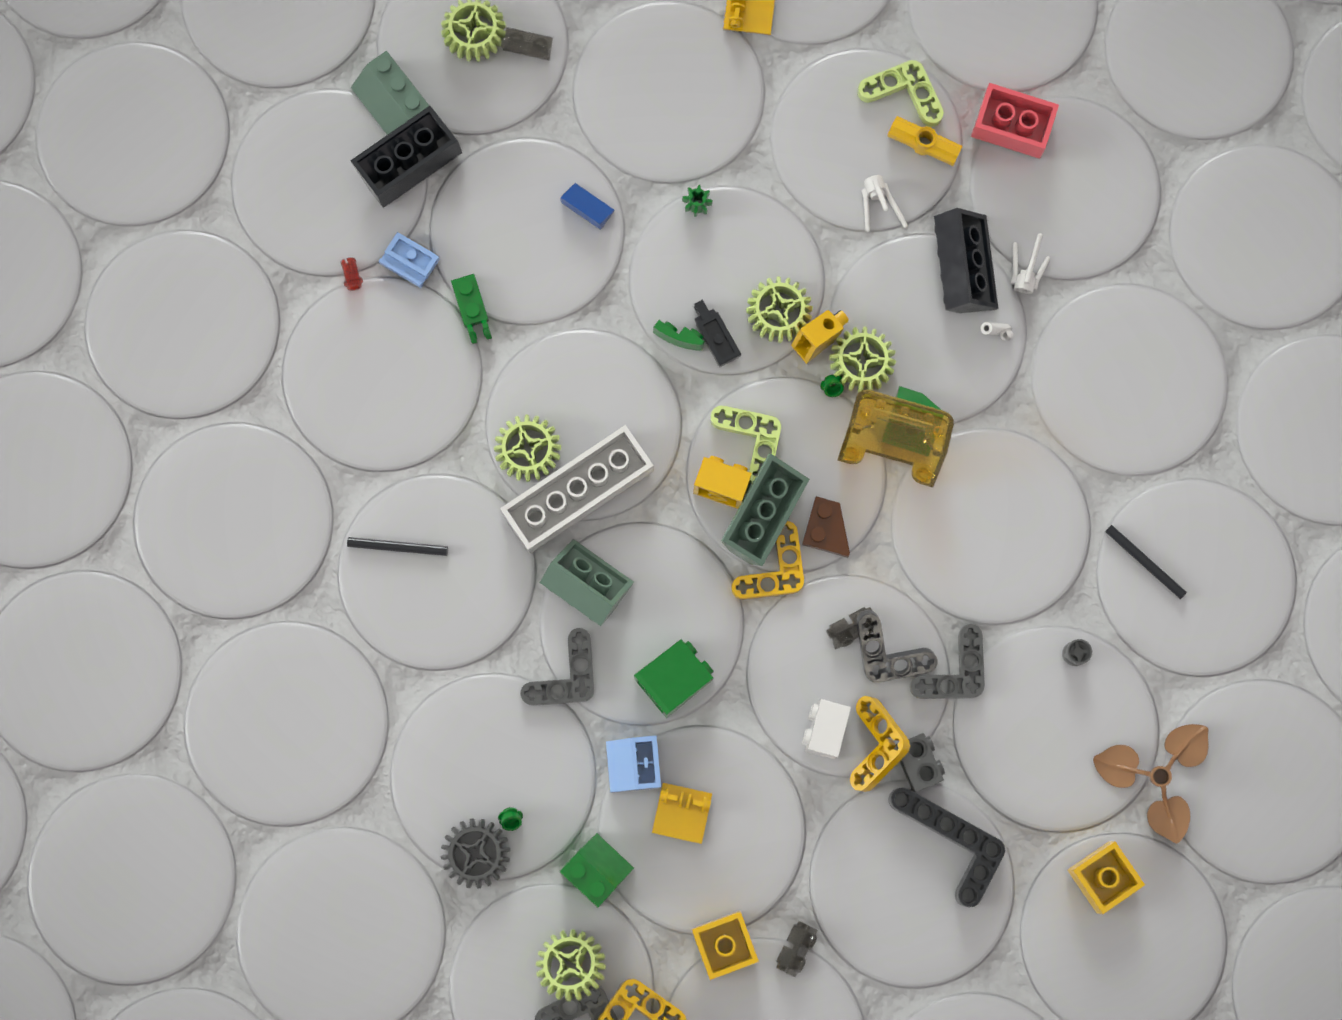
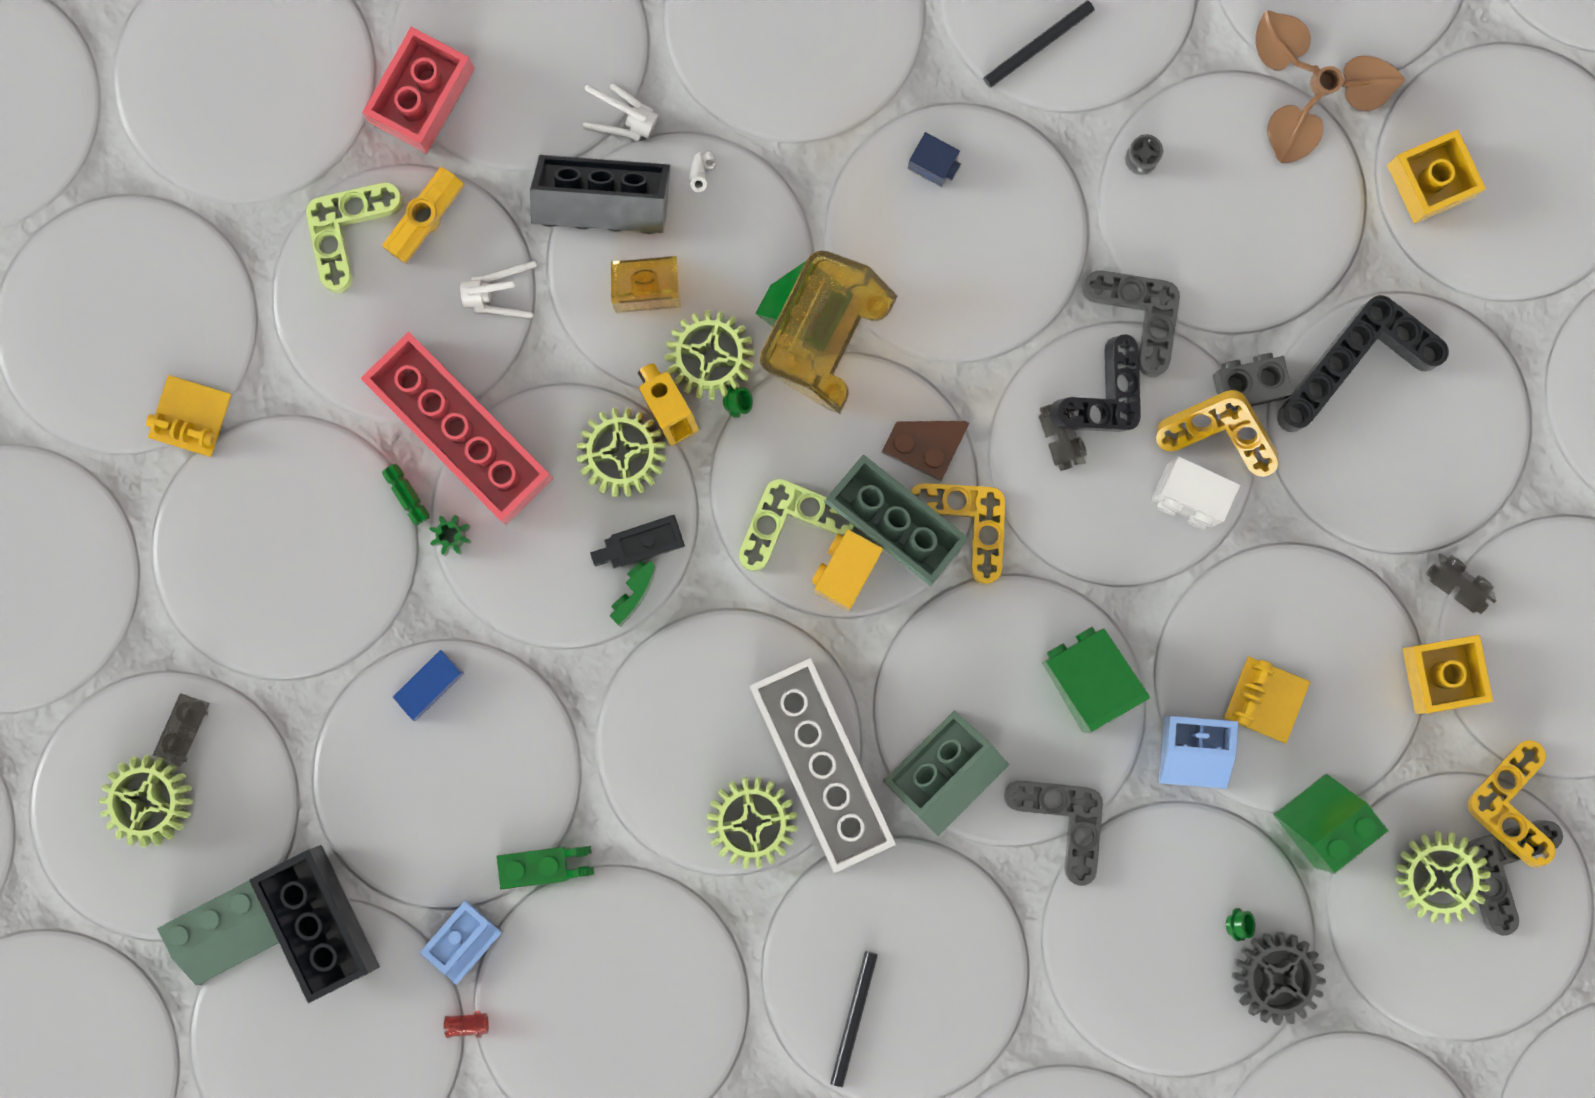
camera: 80 degrees left, 5 degrees up
(721, 165) = (405, 494): none -> green axle
(774, 191) = (457, 428): none -> coral brick
(905, 305) = (645, 284): none -> clear yellow slope
(1040, 497) = (934, 160): none -> dark blue brick

